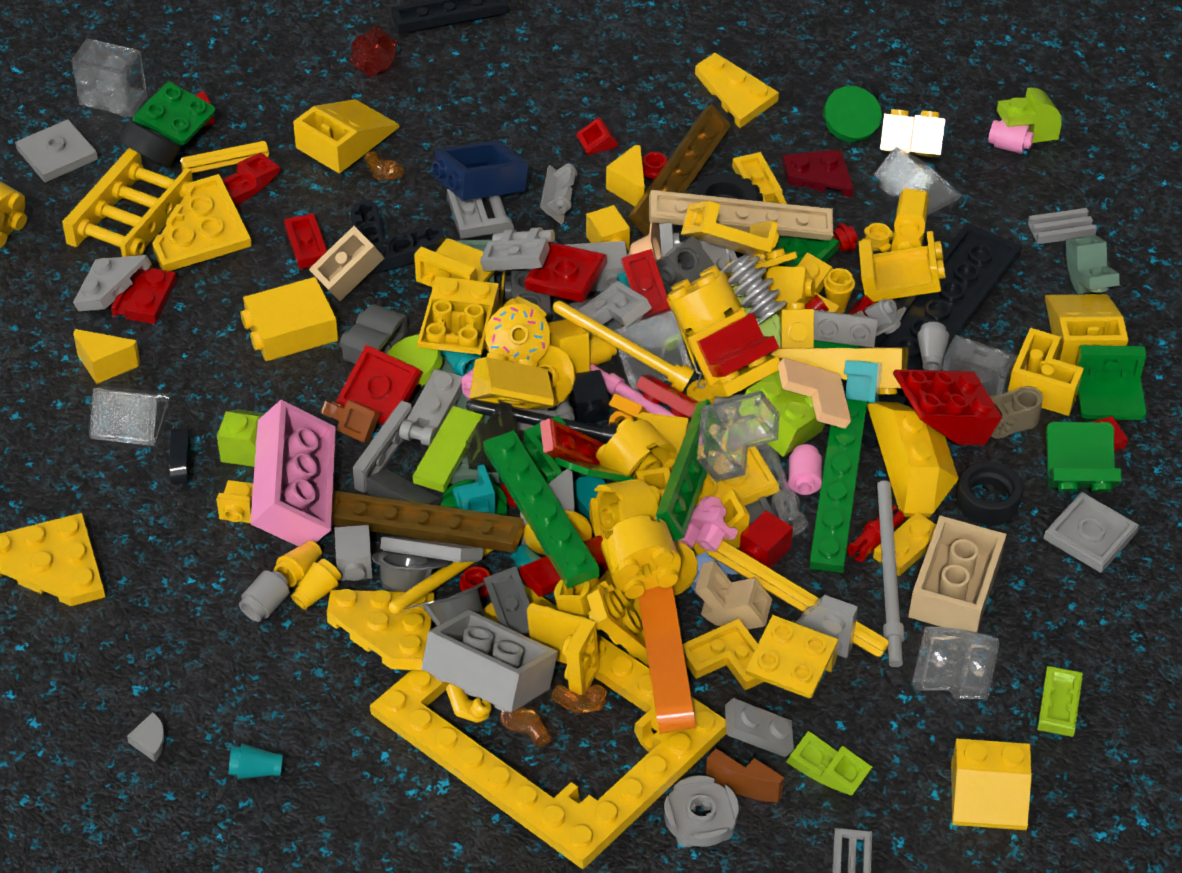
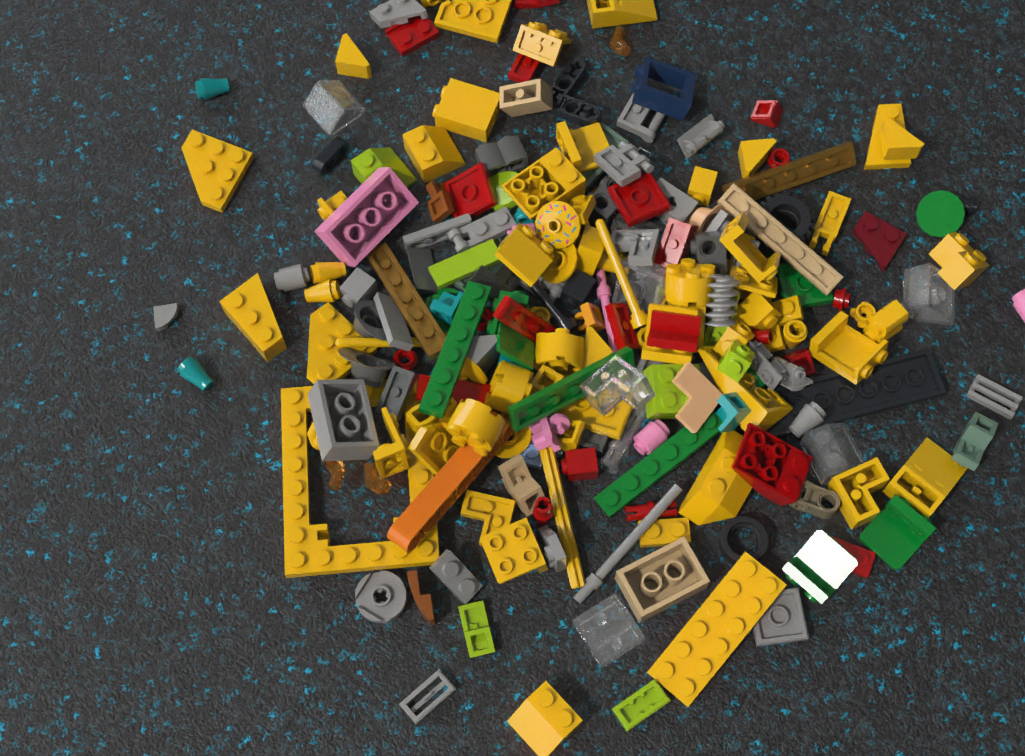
camera: 45 degrees right, 20 degrees up
(268, 658) = (254, 317): none -> yellow wedge
(290, 380) = (432, 151): none -> yellow slope
(307, 209) = (540, 43): none -> yellow bracket
(752, 76) = (898, 142): none -> yellow slope
(780, 599) = (543, 511): none -> red pin
(821, 330) = (736, 360): none -> lime brick
(1053, 580) = (716, 629): none -> yellow plate

